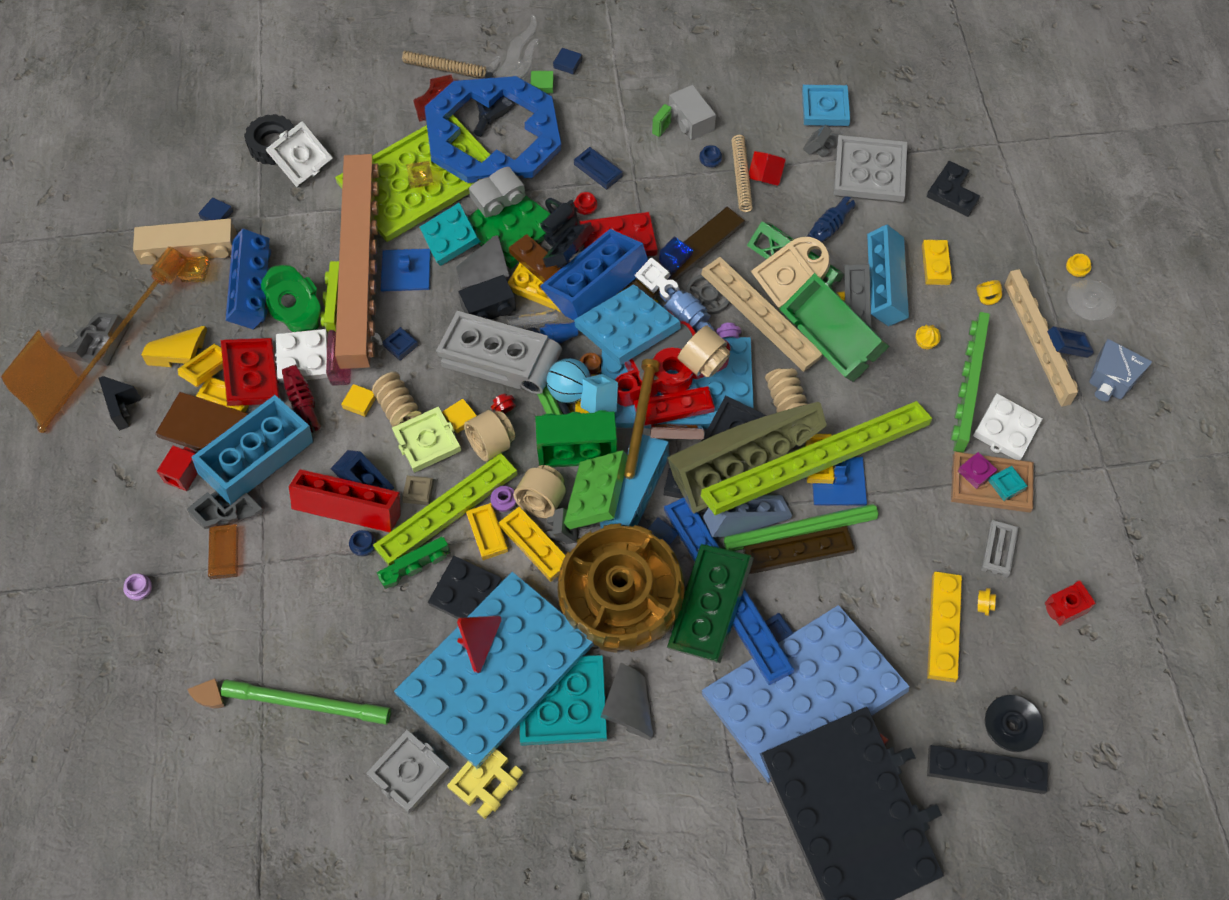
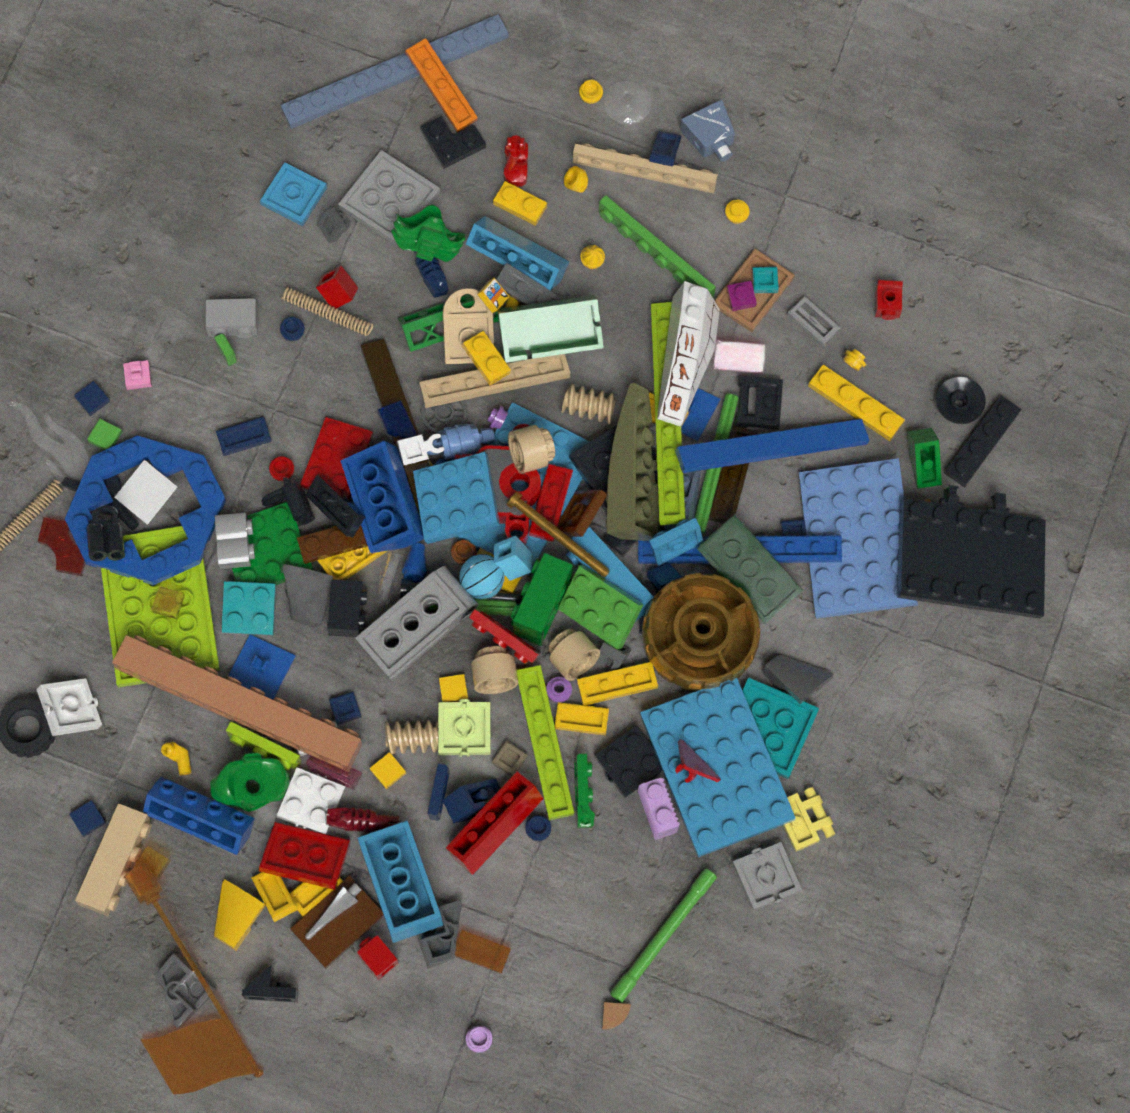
camera: 65 degrees left, 10 degrees up
(217, 415) = (342, 901): none -> light grey piece
(299, 246) = (178, 754): none -> yellow arm
(366, 442) = (438, 792): none -> dark blue tile
(426, 634) = (658, 808): none -> lavender brick
(448, 103) = (105, 536): none -> black piece
(503, 403) = (465, 645): red plate -> none
(506, 121) = (146, 492): none -> white sticker
(521, 431) = (503, 636): none -> red plate
(605, 79) = (137, 374): none -> bright pink tile
(693, 518) = (676, 541): none -> dark azure plate
(773, 293) = (486, 358): none -> yellow plate
(832, 268) = (493, 295): none -> tile
(846, 563) = (771, 445): none -> blue tile
(854, 202) = (427, 235): none -> green piece
(887, 544) = (767, 402): none -> black plate
(891, 445) = (688, 350): none -> white wedge
(918, 499) = (739, 356): none -> clear pink slope
(929, 717) = (925, 457): none -> green slope
(979, 239) = (517, 158): none -> red piece
(987, 125) = (390, 73): none -> sand blue plate
(995, 154) = (441, 85): none -> orange plate
(1007, 427) = (712, 247): white plate -> none
(1057, 431) = (737, 211): none -> yellow plate

